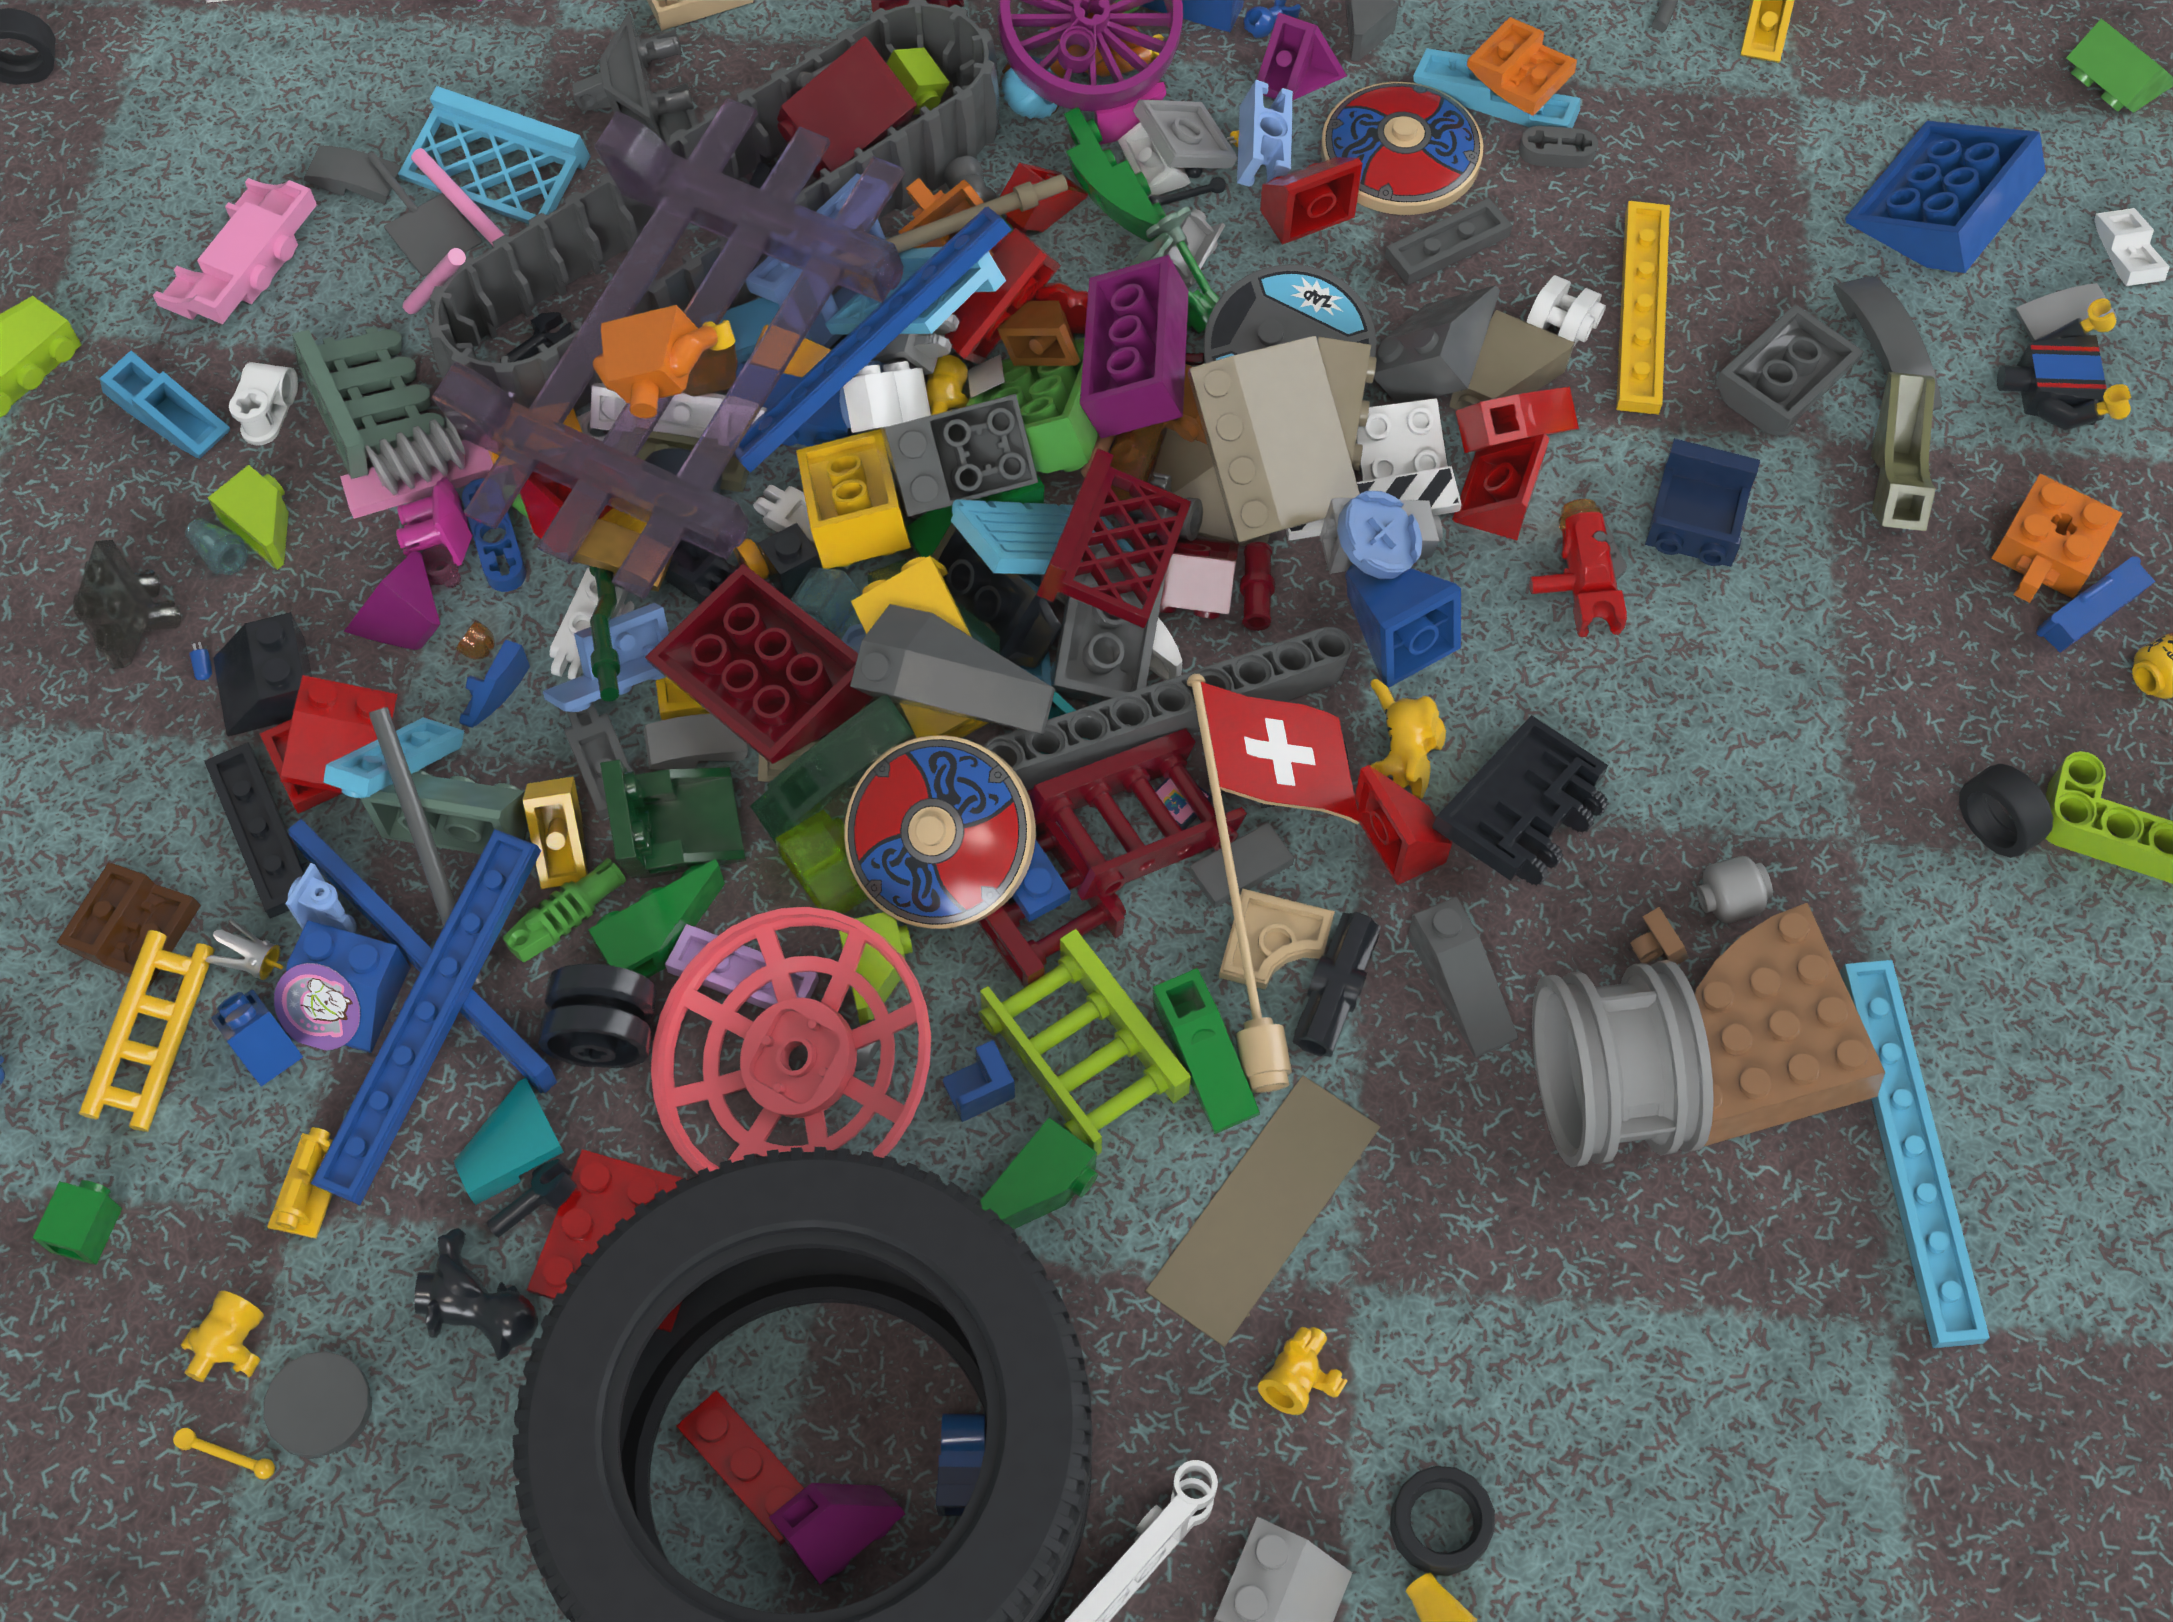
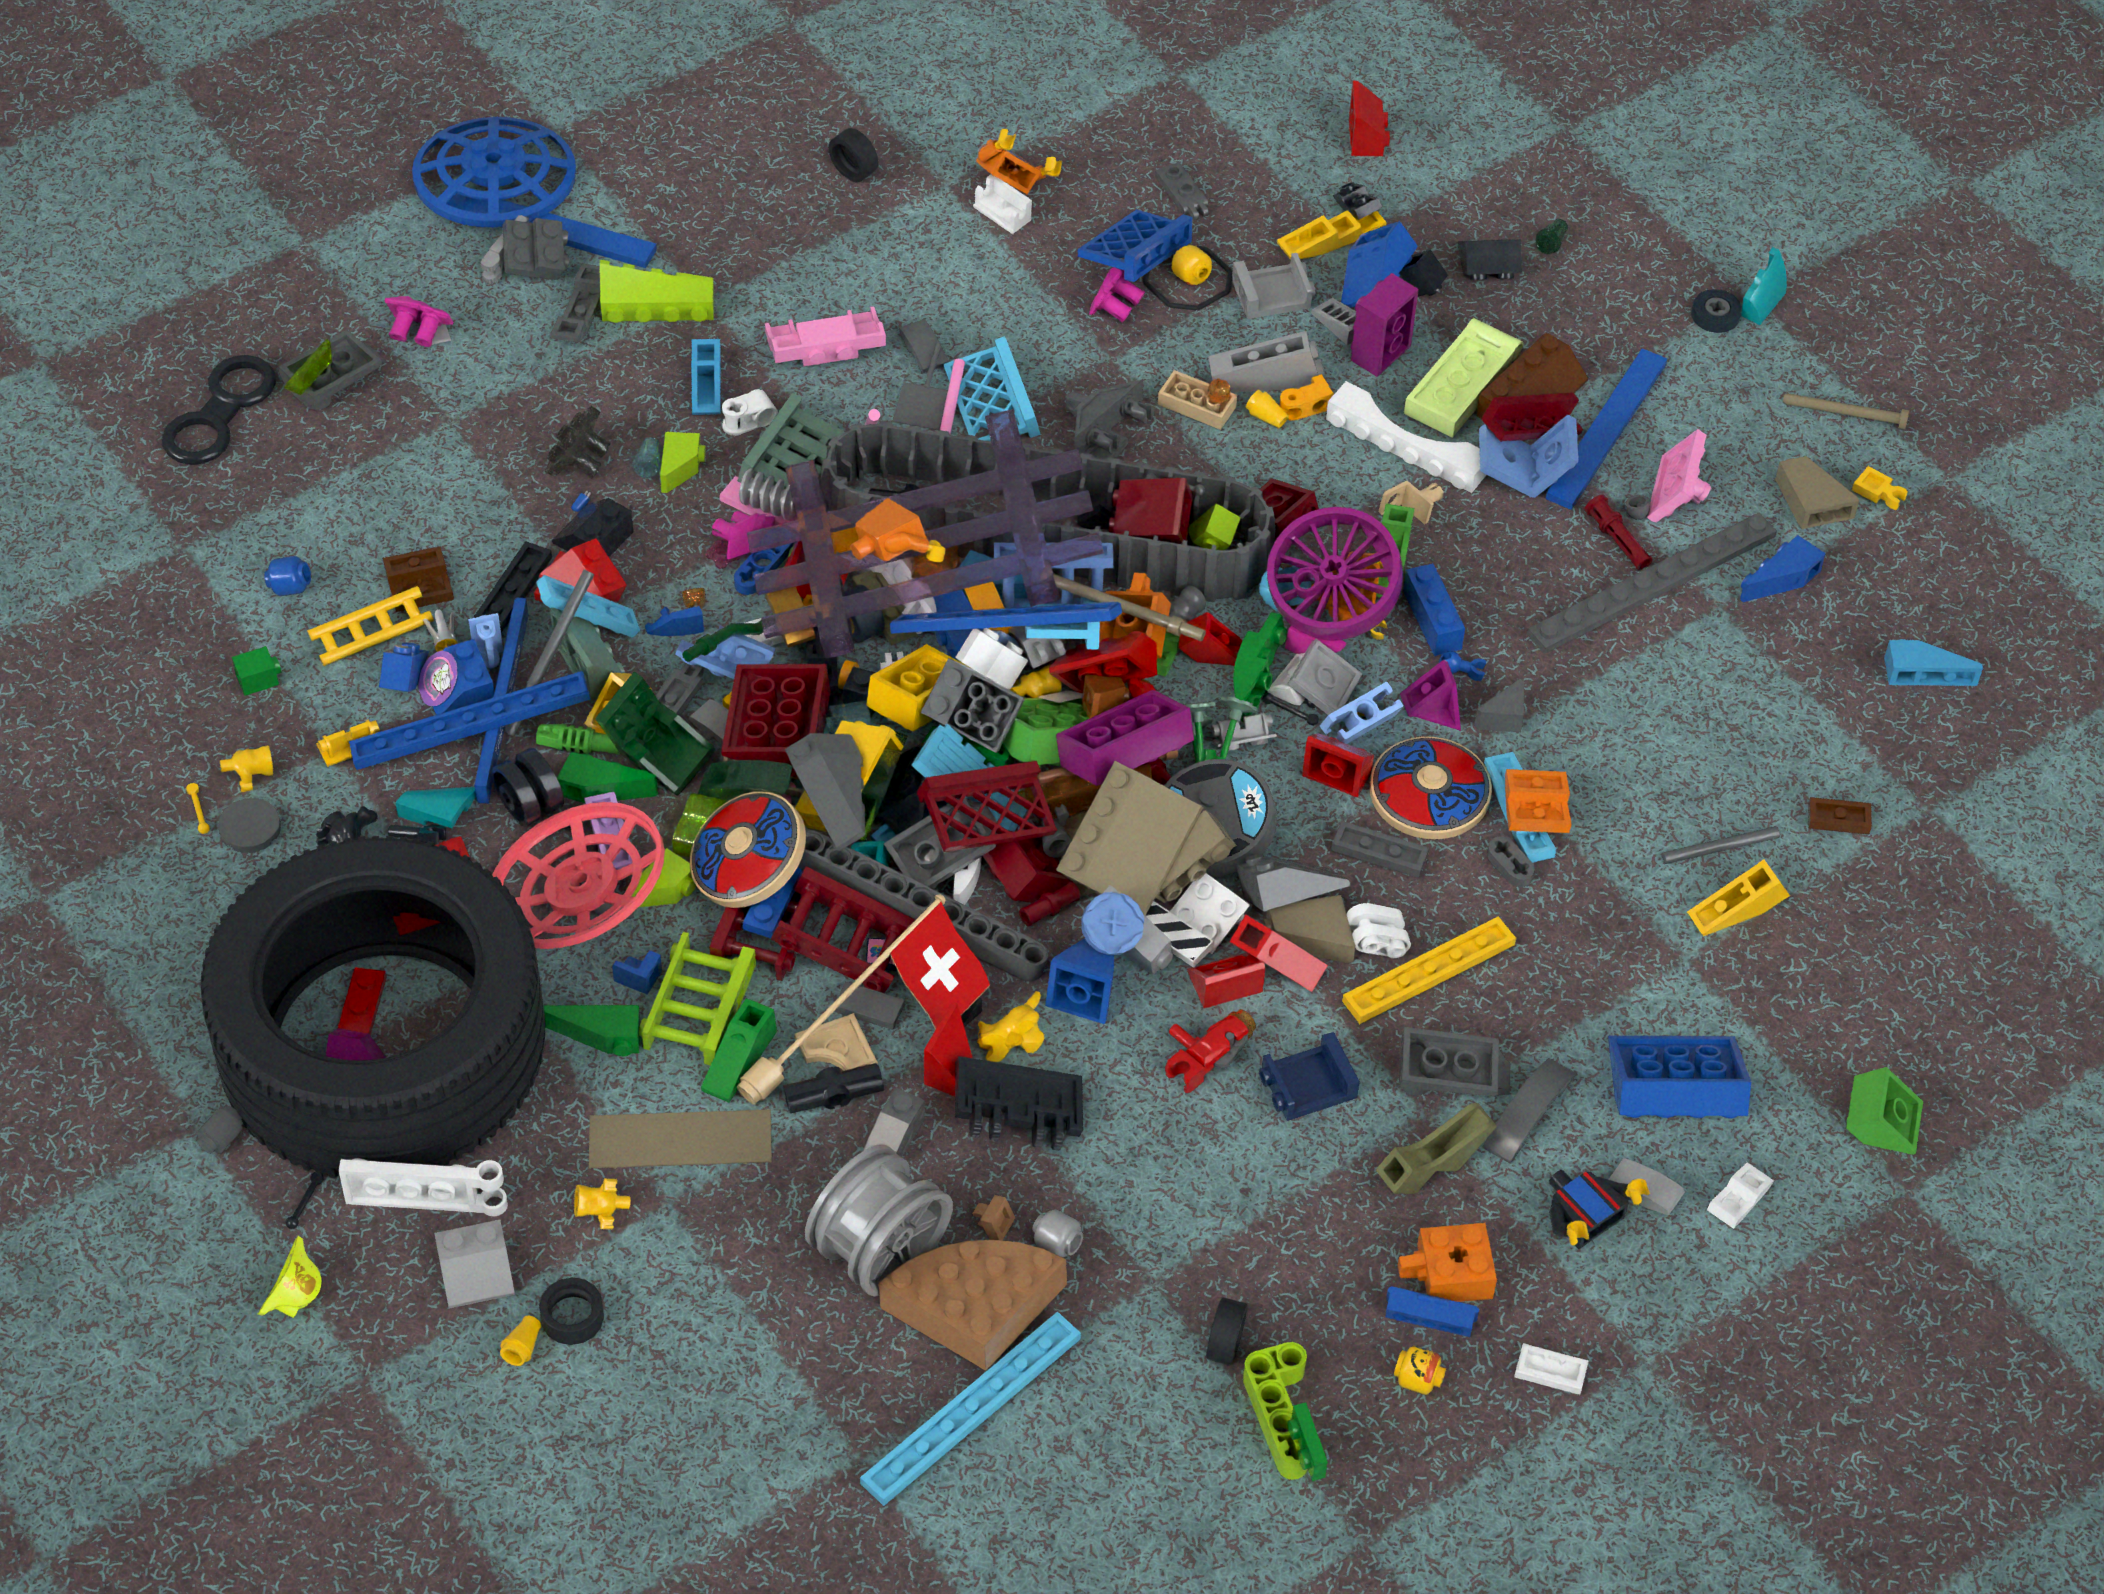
camera: 50 degrees right, 10 degrees down
(400, 608) = (682, 551): magenta slope -> none

